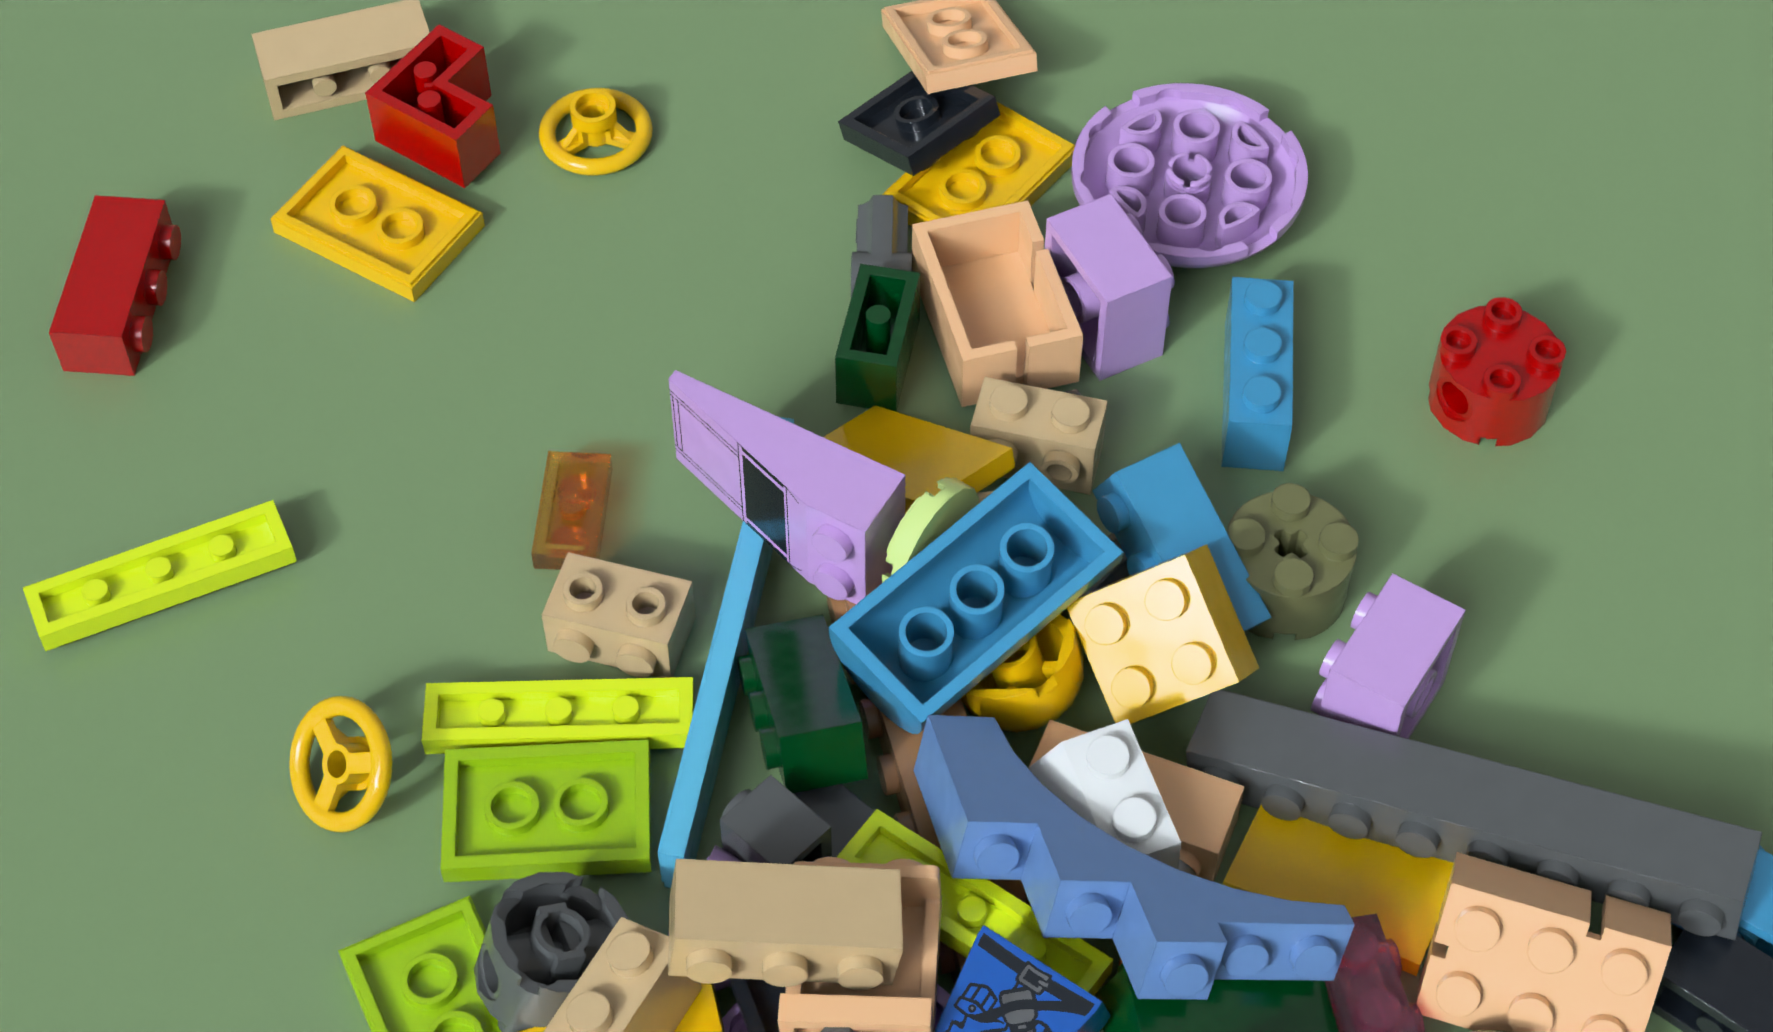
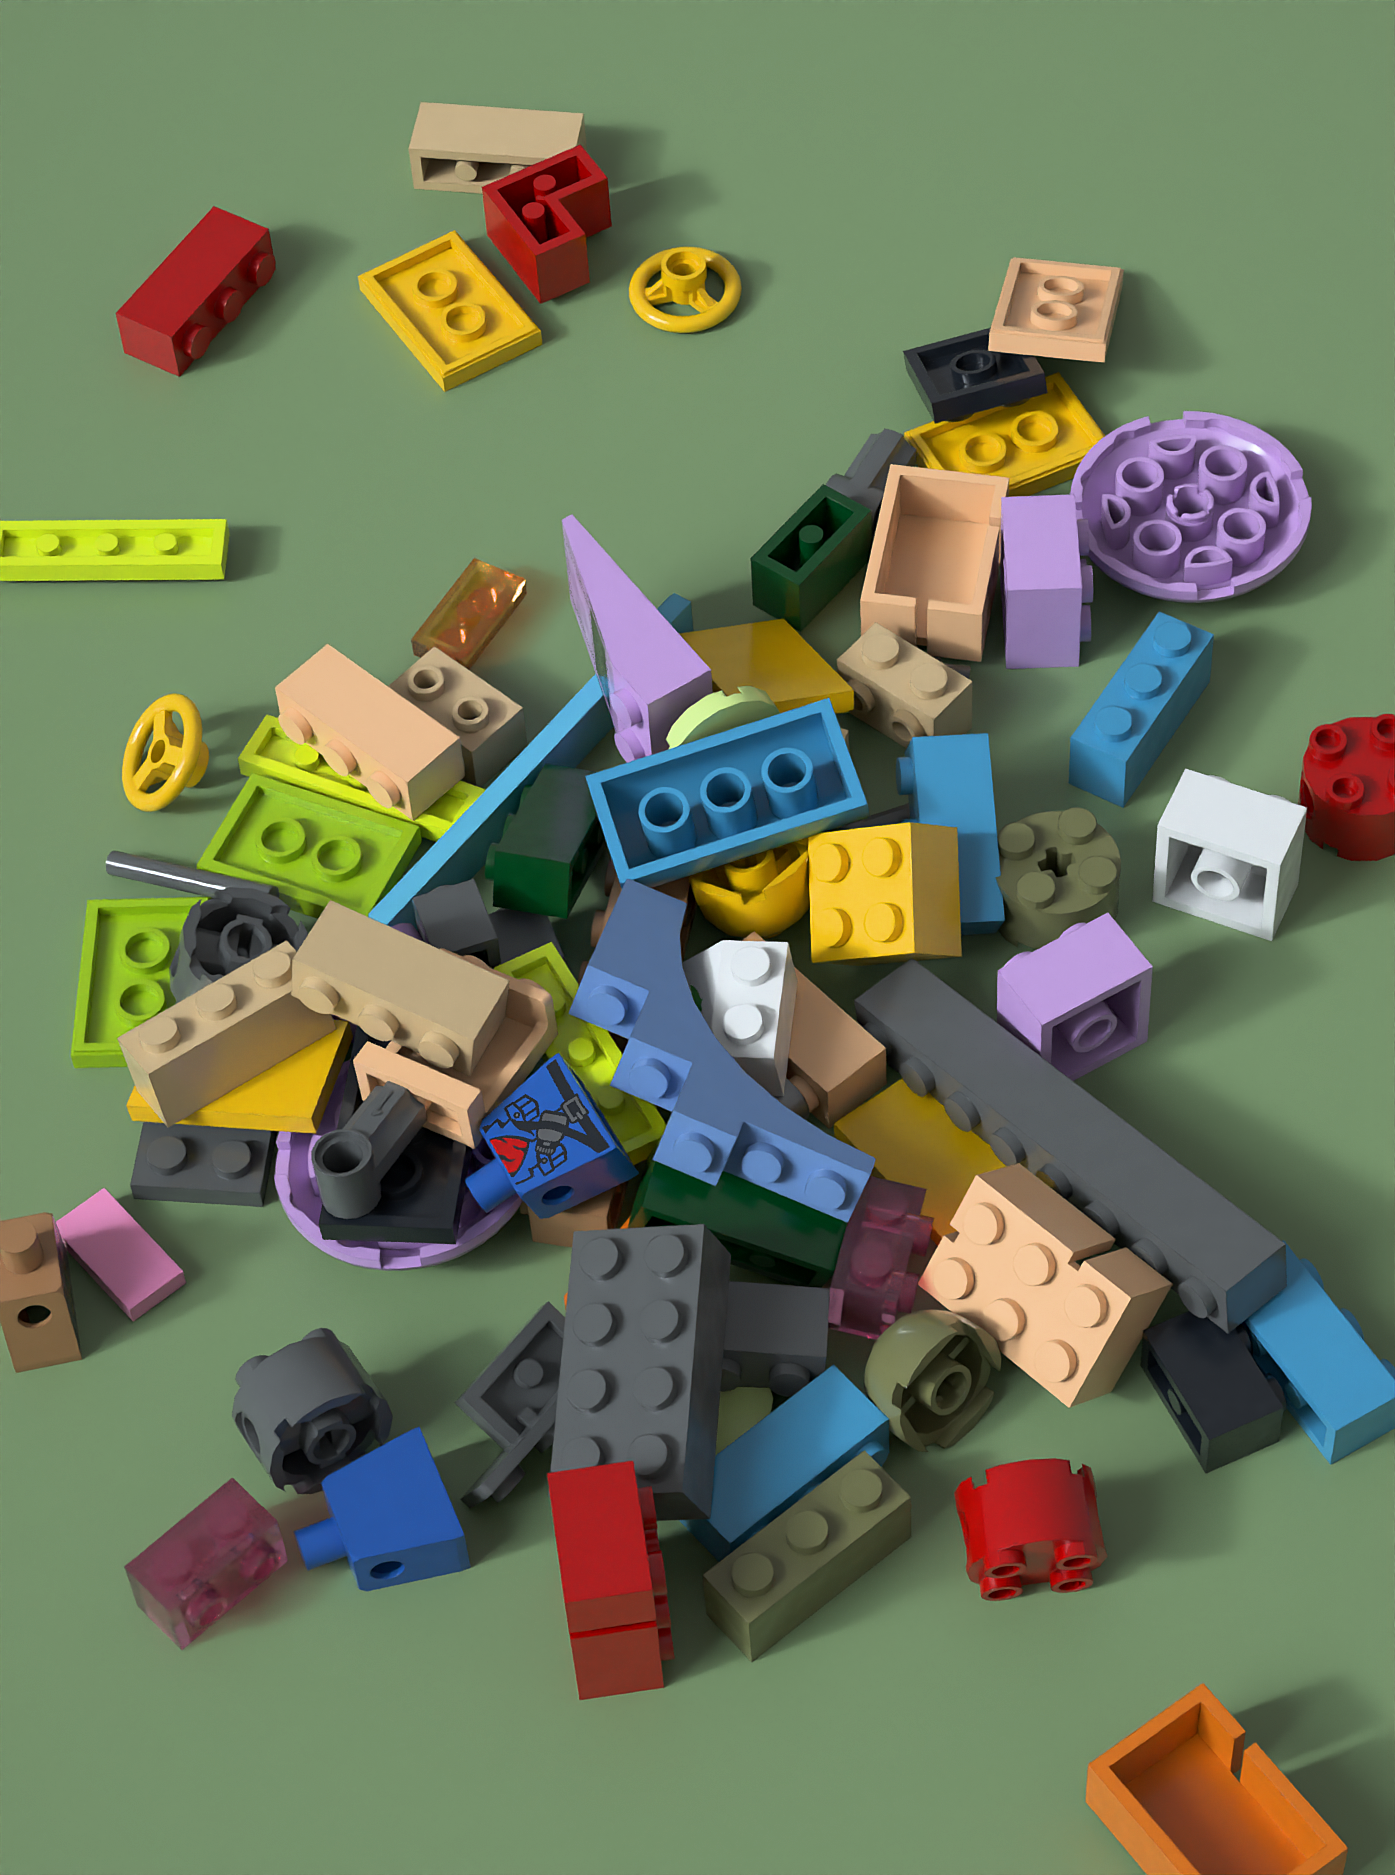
camera: 30 degrees right, 0 degrees up
(433, 886) = (177, 876): none -> dark grey bar
(553, 662) = (369, 732): none -> light nougat brick
(1432, 477) = (1228, 854): none -> white brick

